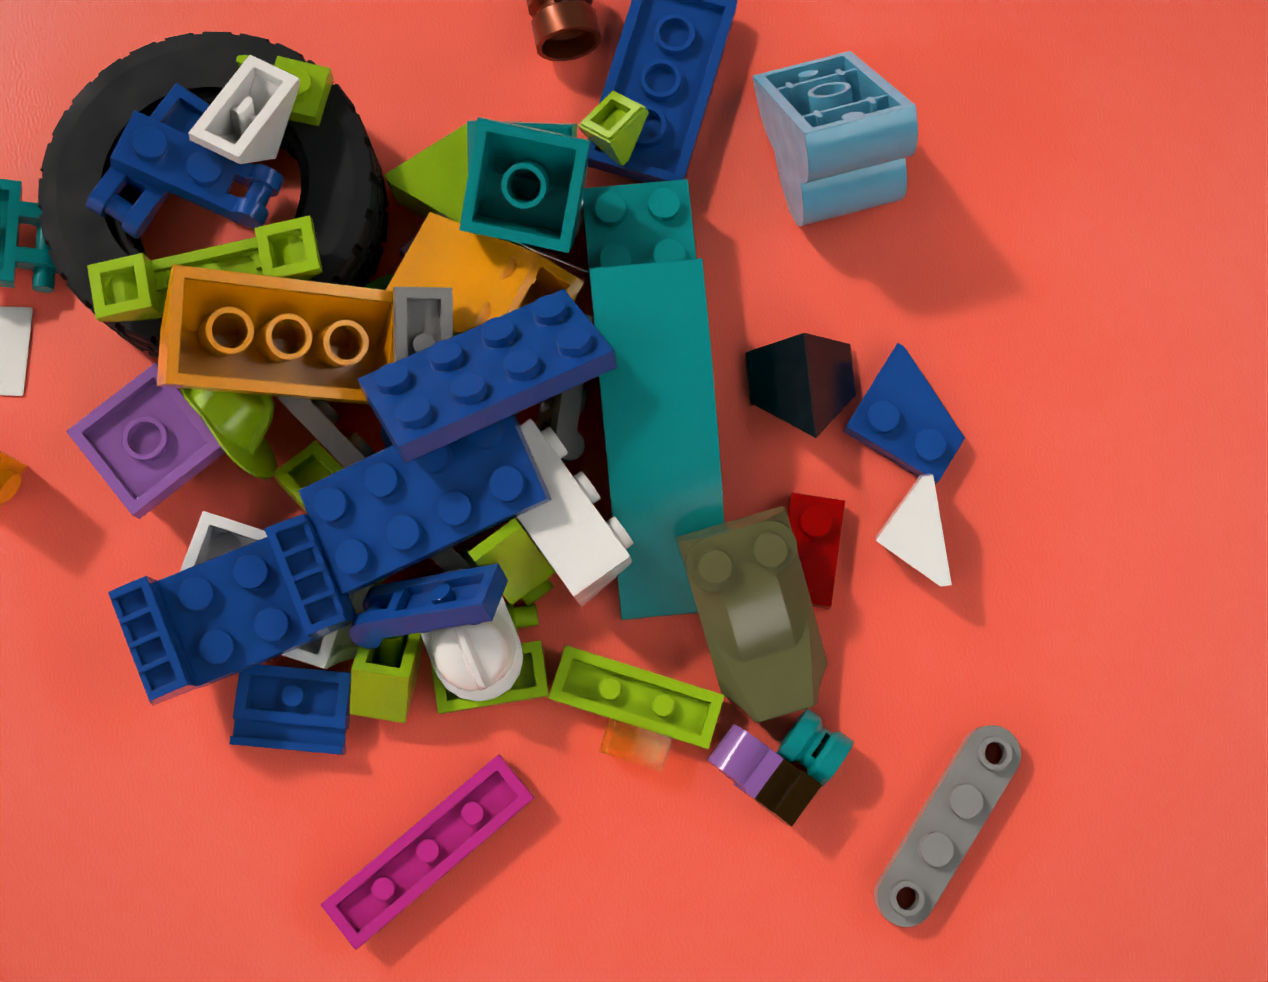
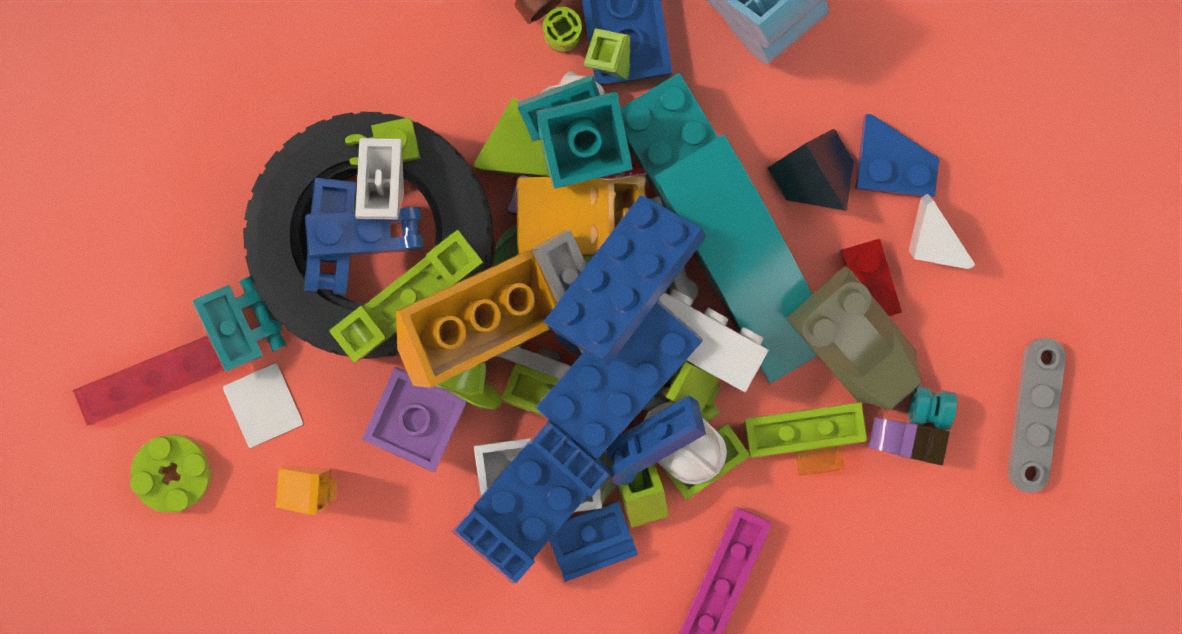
camera: 25 degrees left, 10 degrees up
(576, 90) = (562, 37): none -> lime wheel

